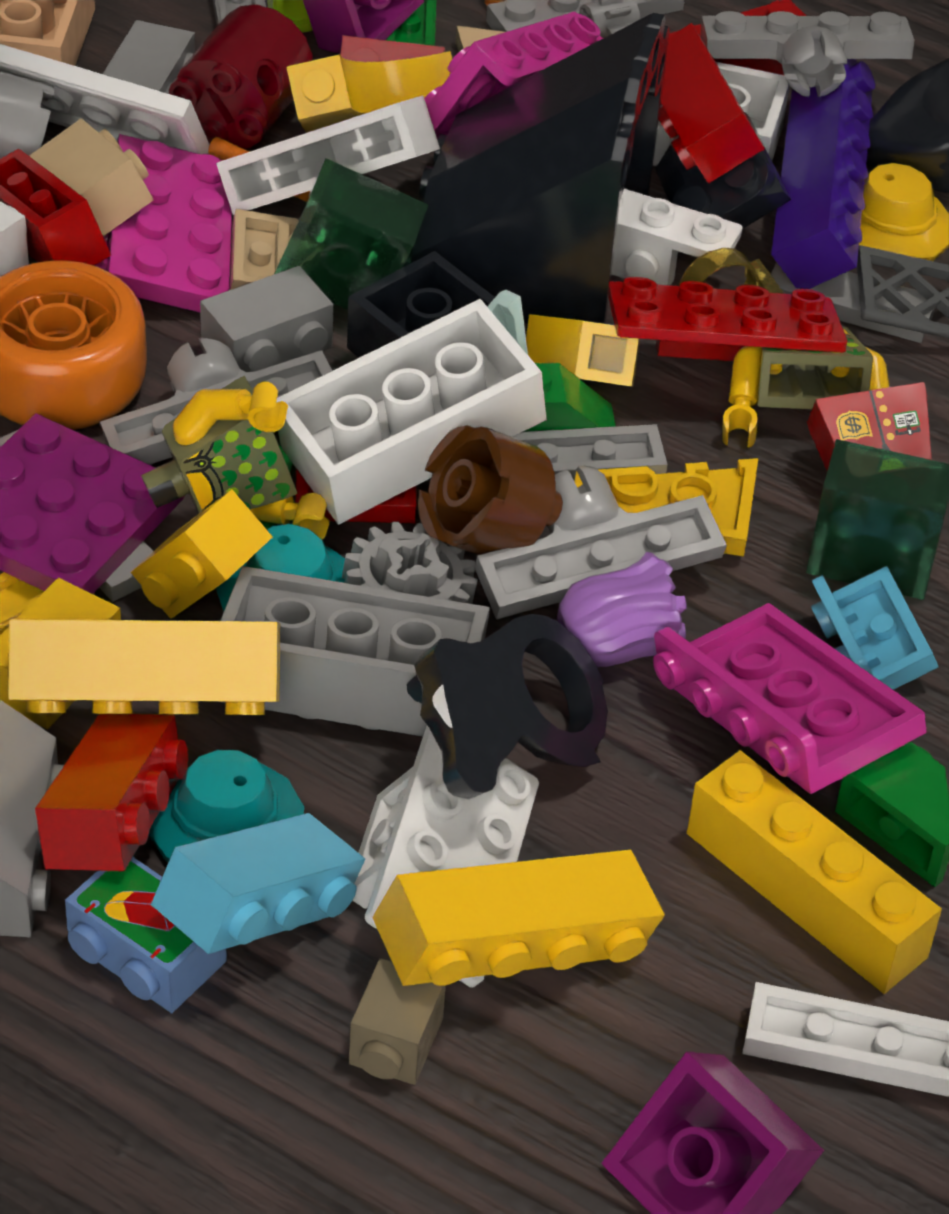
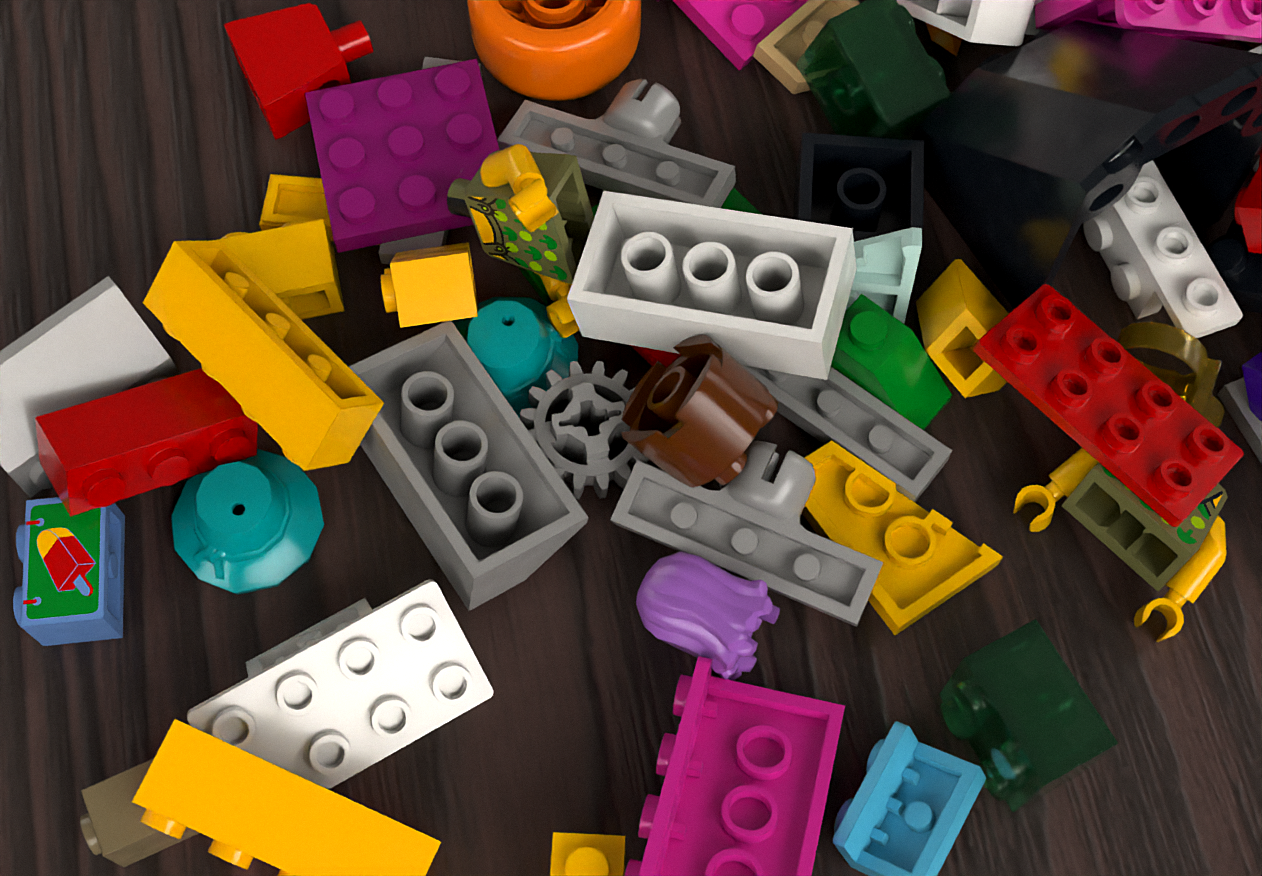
camera: 50 degrees right, 20 degrees up
(257, 882) = (148, 612): medium azure brick -> none
(270, 319) = (745, 104): light grey brick -> none
(482, 708) = (459, 609): black animal -> none
(876, 418) = (1121, 634): torso -> none

